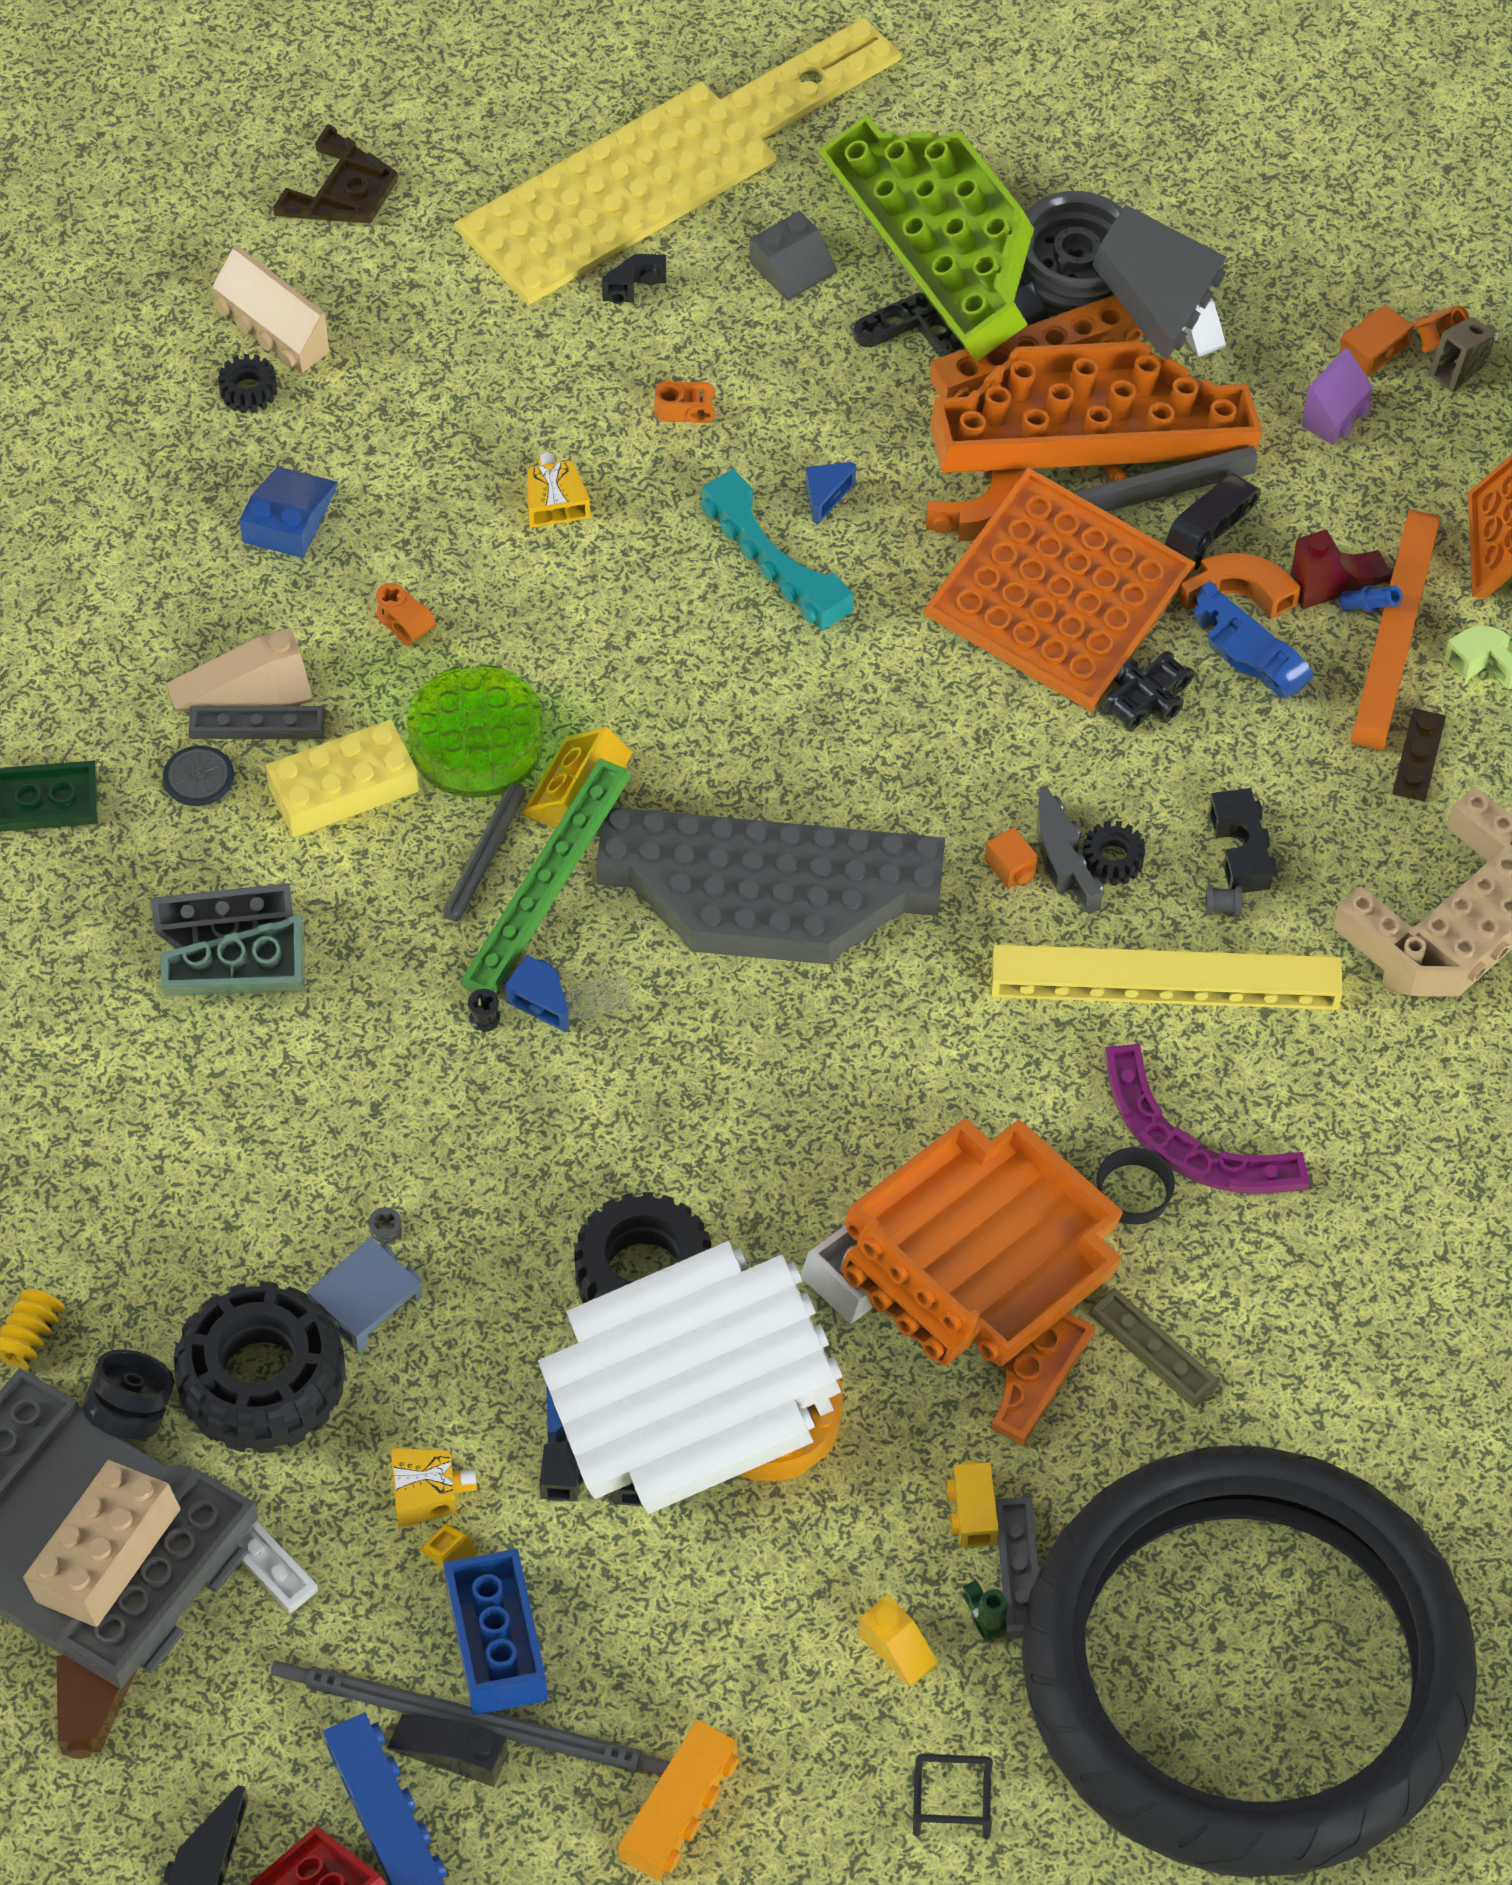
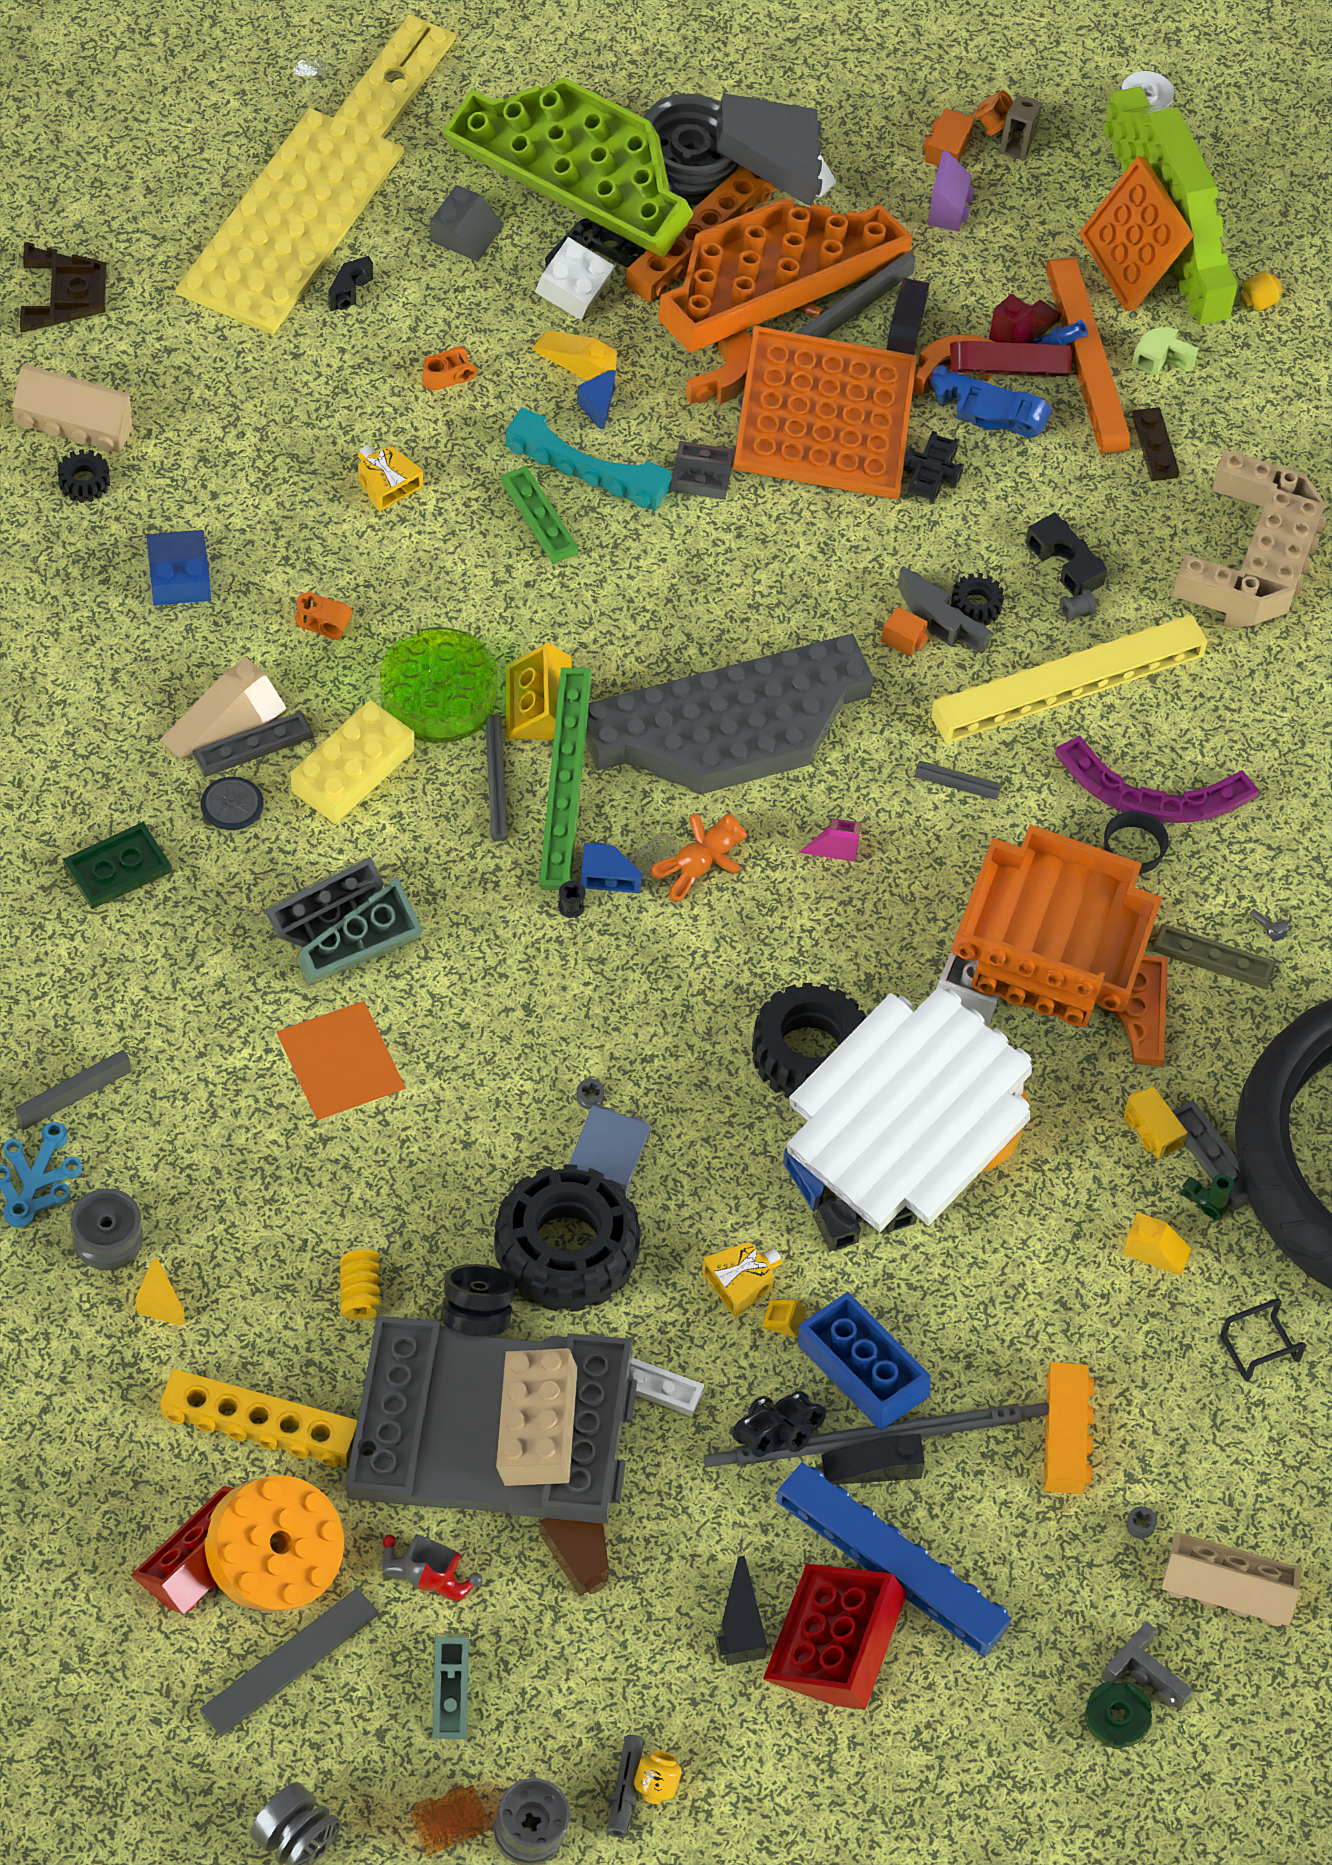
camera: 30 degrees left, 0 degrees up
(153, 1086) = (340, 1060): none -> orange piece
(378, 1659) = (779, 1423): none -> black axle
(641, 1016) = (697, 857): none -> orange animal
(691, 590) = (539, 514): none -> bright green plate
(730, 39) = (311, 67): none -> clear slope
(808, 1056) = (836, 841): none -> dark pink slope
(831, 434) = (577, 353): none -> yellow slope
(870, 352) = (574, 278): none -> white brick
(893, 604) = (702, 470): none -> dark grey slope
(978, 1042) = (957, 780): none -> dark grey axle
(1241, 1346) = (1275, 930): none -> flat silver hand
(1296, 602) = (1010, 358): none -> dark red beam

